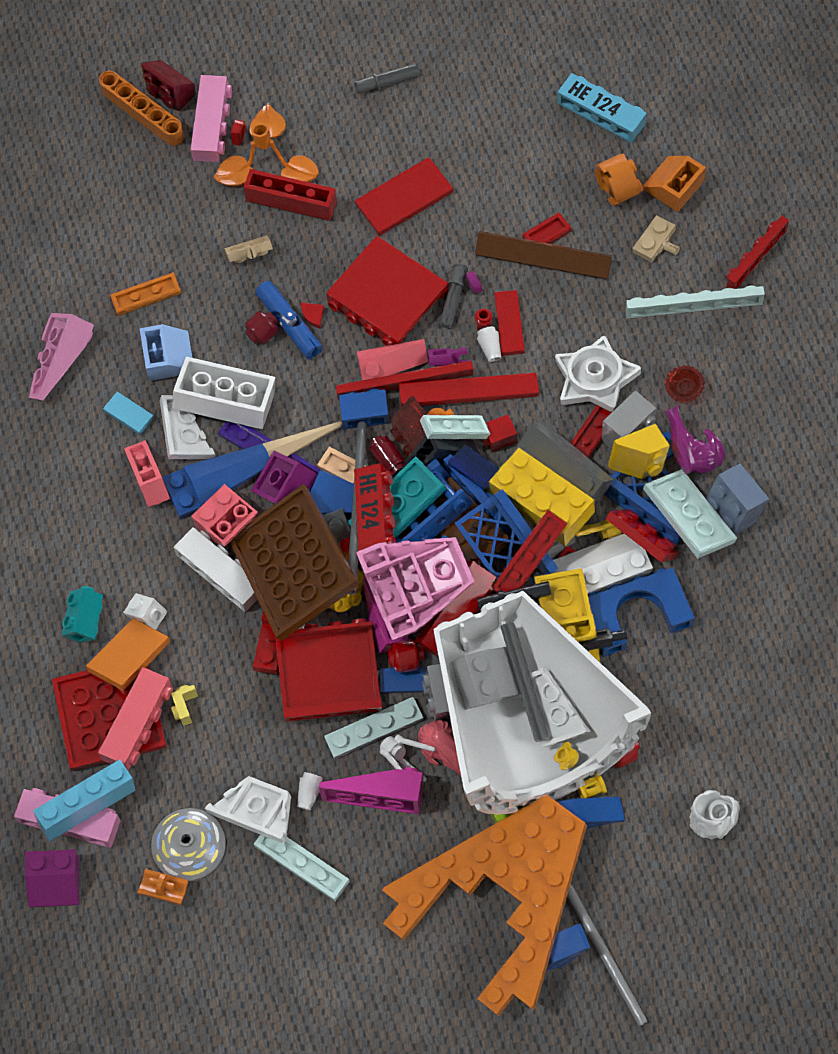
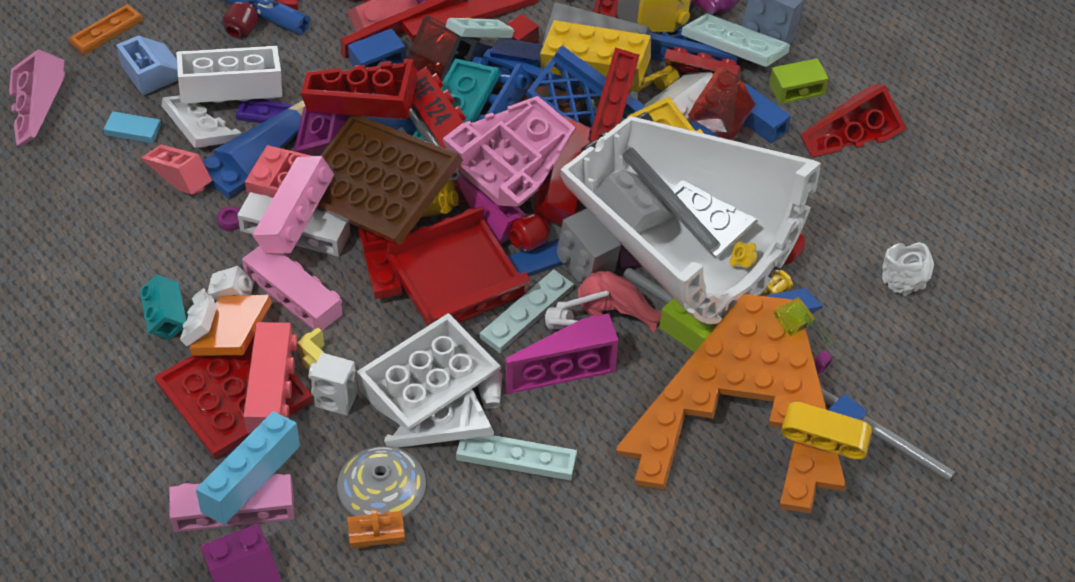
camera: 30 degrees left, 15 degrees down
(106, 637) = (199, 318): none -> white hinge
(170, 539) = (228, 219): none -> magenta tile
(182, 744) = (333, 383): none -> white brick
(192, 632) = (293, 288): none -> bright pink brick
(217, 560) = (293, 205): none -> bright pink brick
(259, 764) = (425, 372): none -> white slope
(320, 474) = (362, 91): none -> red wedge
(537, 957) = (826, 430): none -> yellow beam
(570, 838) = (794, 316): none -> clear neon green plate
(589, 877) = (822, 361): none -> magenta tile
(632, 590) = (723, 104): none -> clear red slope
(727, 577) = (798, 81): none -> lime brick
(759, 641) = (858, 120): none -> red wedge

